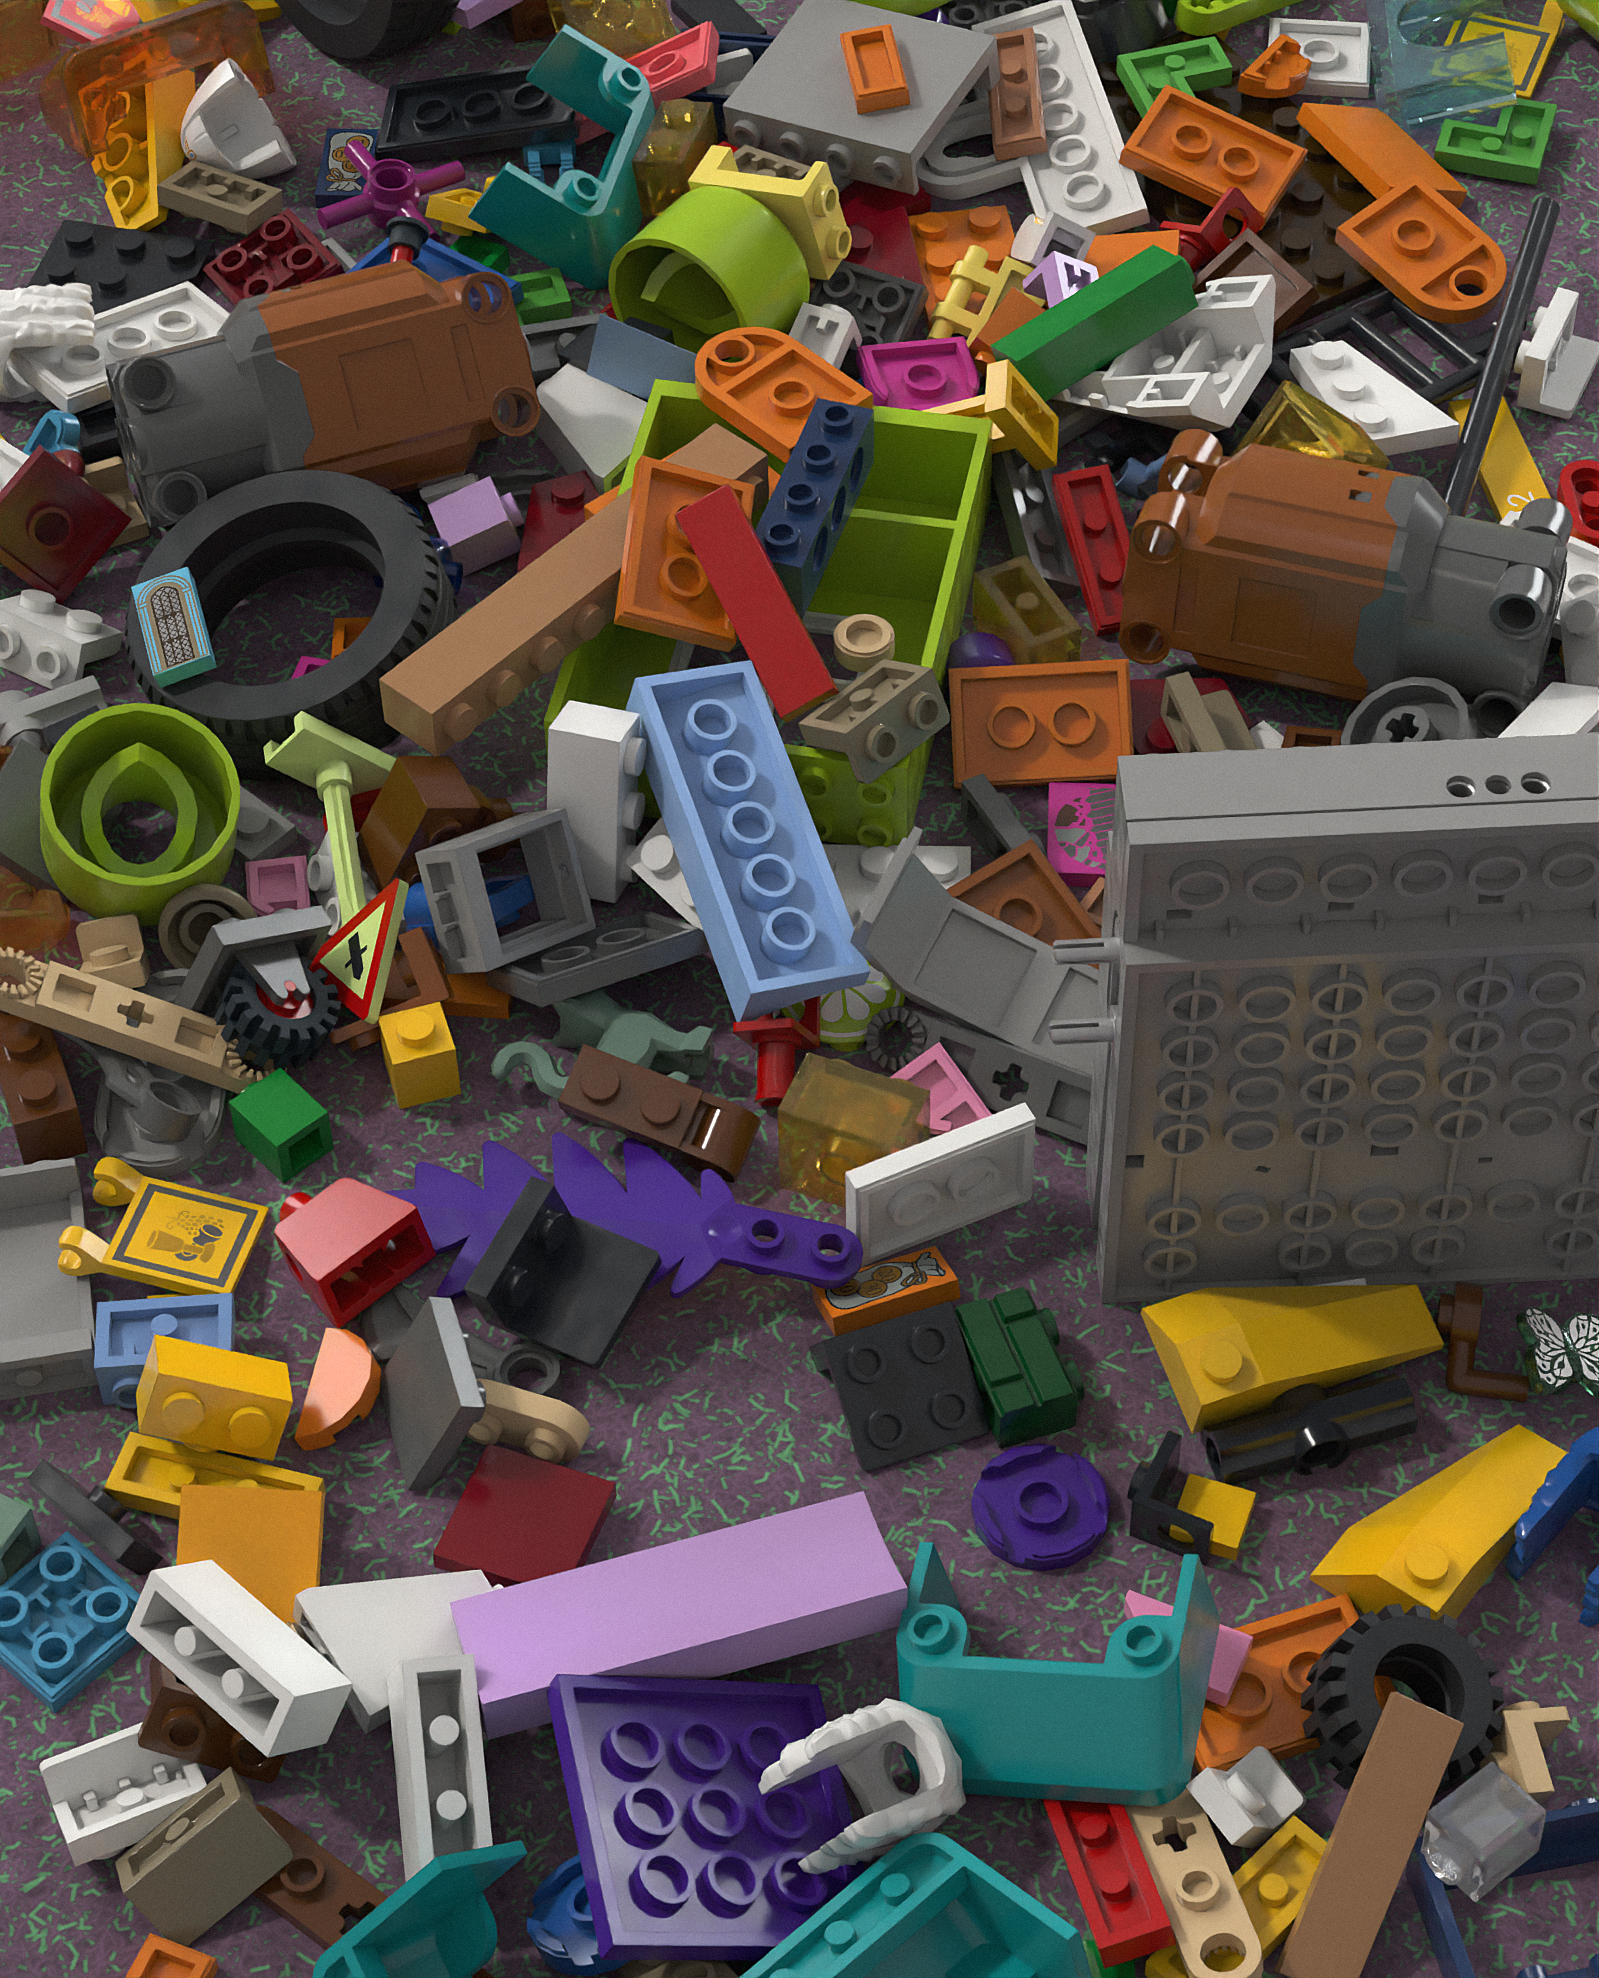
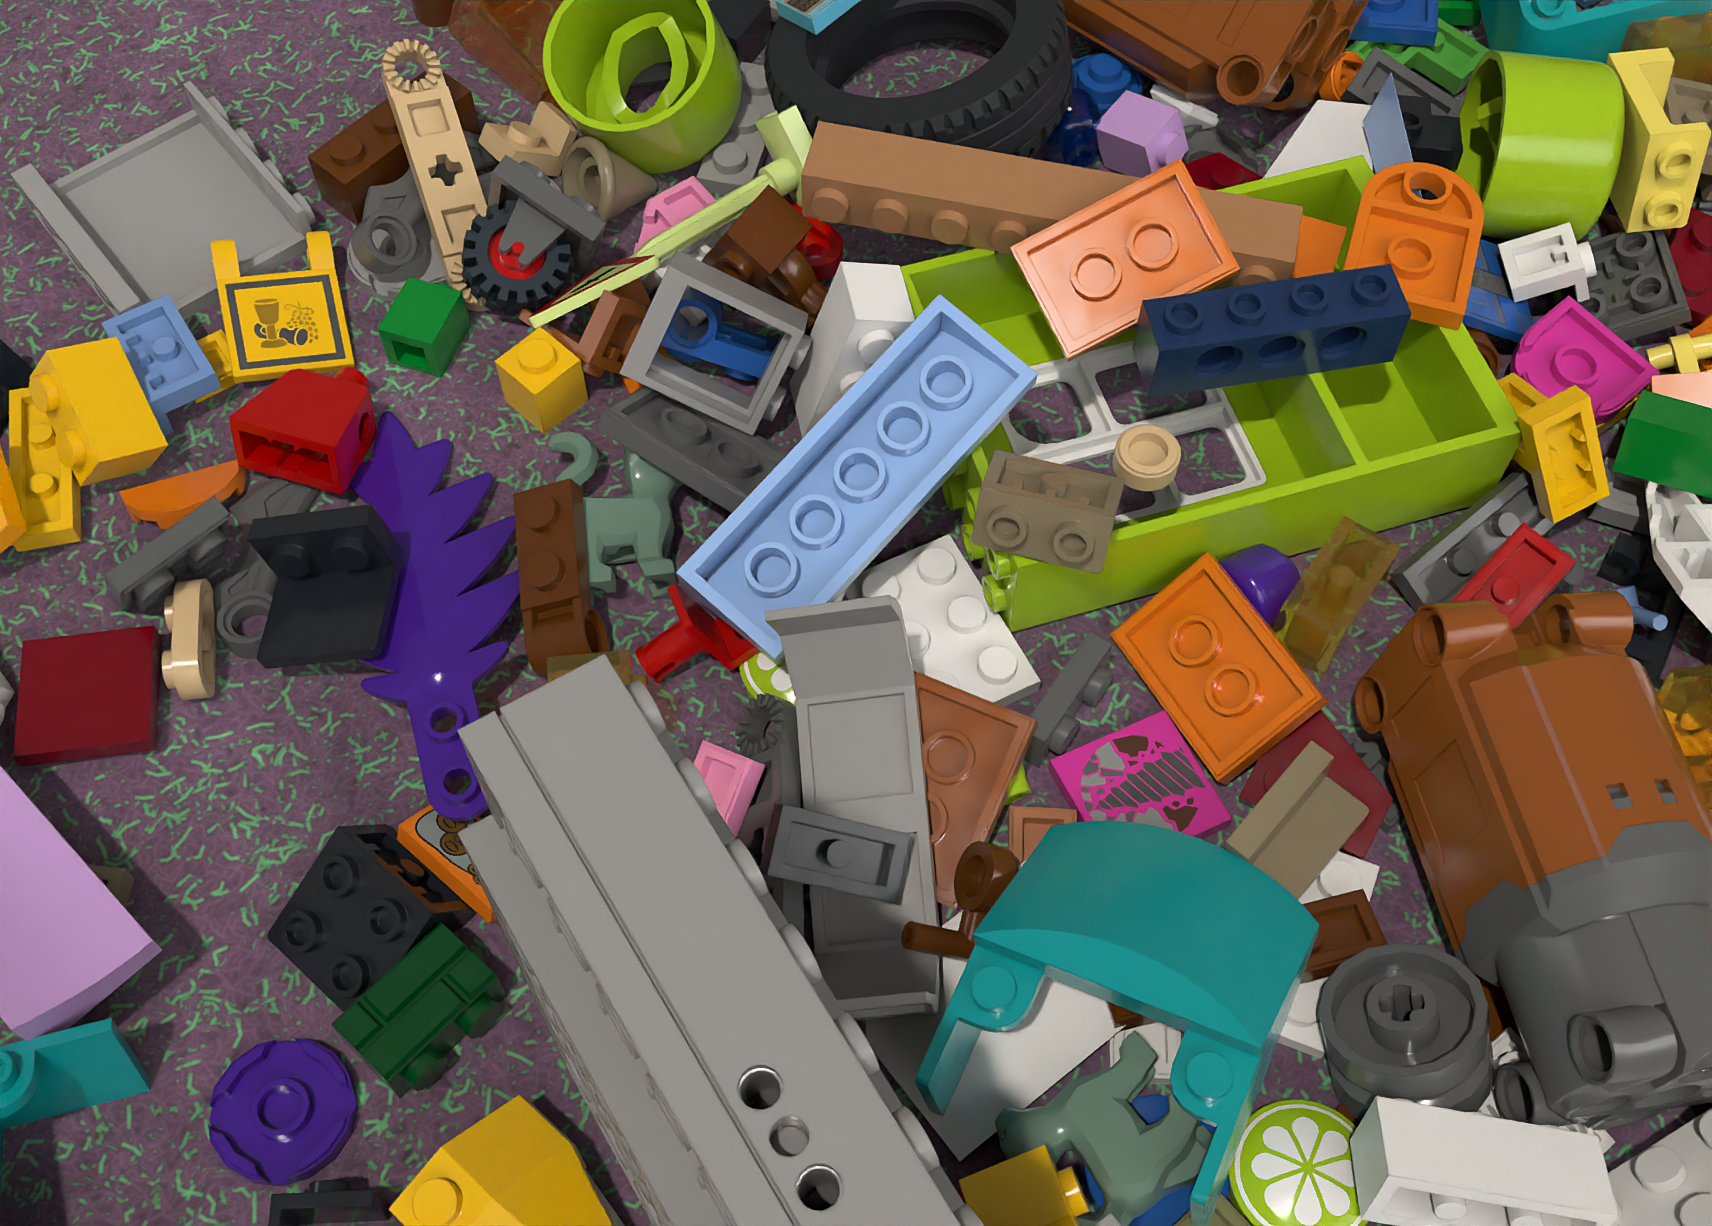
camera: 60 degrees right, 10 degrees up
(757, 603) = (1097, 340): red tile -> none
(1066, 997) = (834, 853): none -> black plate

